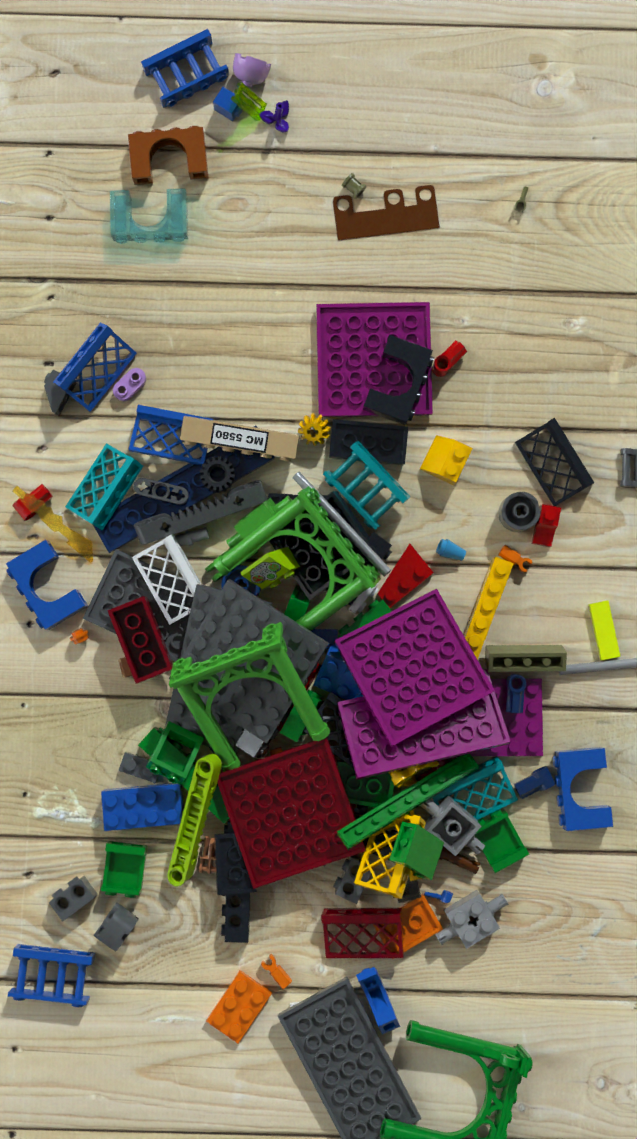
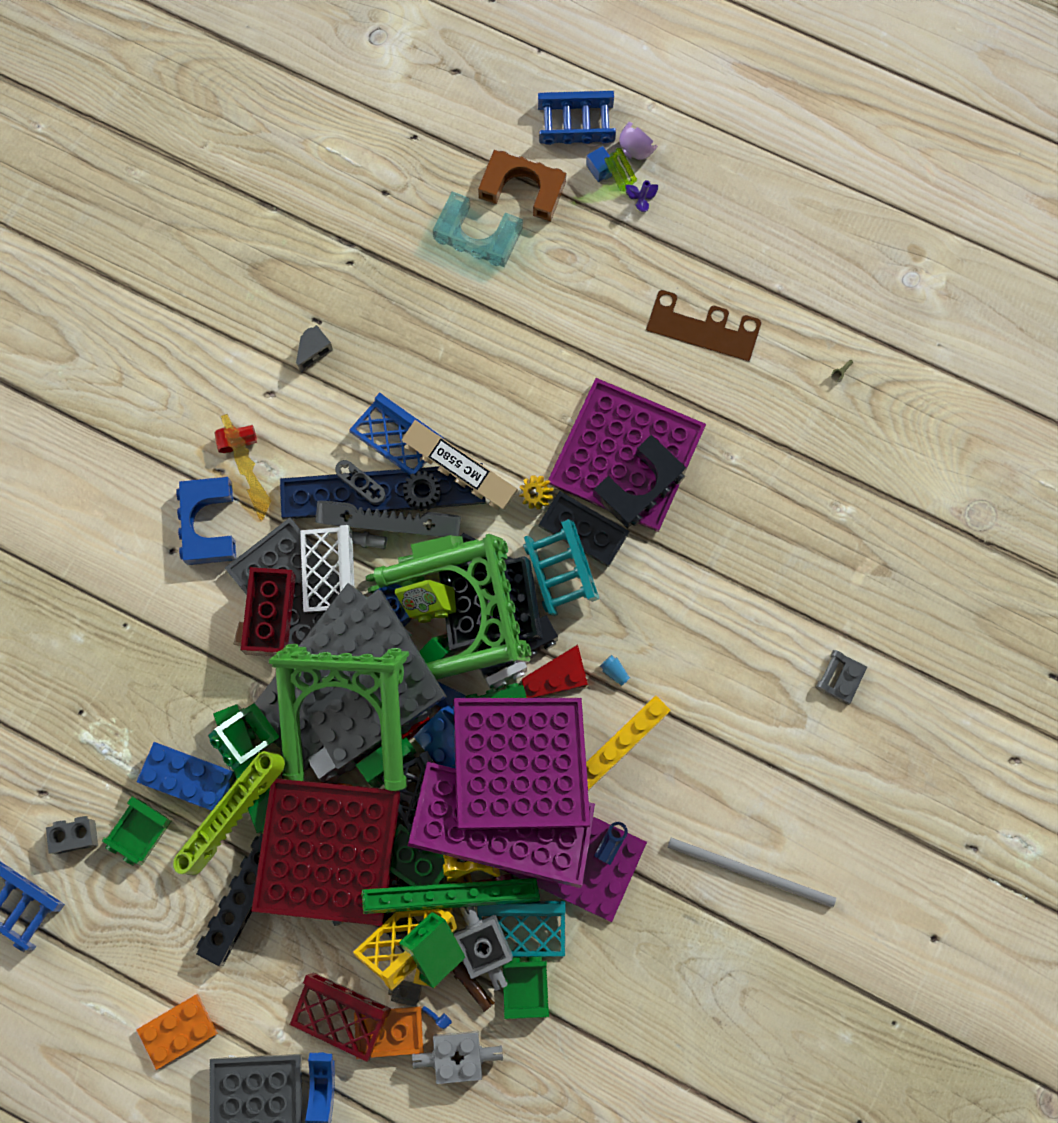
camera: 30 degrees right, 10 degrees down
(79, 636) = (212, 583): orange plate -> none
(84, 356) = (355, 324): blue fence -> none
(113, 493) = (313, 462): teal fence -> none
(116, 927) = (97, 885): dark grey brick -> none
(131, 386) = (382, 375): lavender plate -> none
(136, 767) = (198, 733): dark grey plate -> none
(208, 853) = (230, 857): nougat arm -> none
(230, 866) = (240, 878): black wing -> none
(277, 972) = (233, 1014): orange bar -> none
(346, 528) = (519, 597): light grey piece -> none
(349, 877) = (357, 966): dark grey brick -> none
(353, 185) = (684, 287): olive bush -> none
(446, 459) = (652, 580): yellow slope -> none
(449, 358) = (701, 485): red piece -> none
(514, 557) = (673, 703): orange bar -> none
(525, 658) = (639, 812): olive brick -> none
(529, 508) = (700, 652): dark grey brick -> none
(539, 781) = (593, 945): dark blue piece -> none
(546, 525) = (722, 690): red arch -> none
(568, 765) = (614, 999): blue arch -> none
(570, 457) = (777, 628): black fence -> none
(604, 630) = (734, 824): neon yellow tile -> none

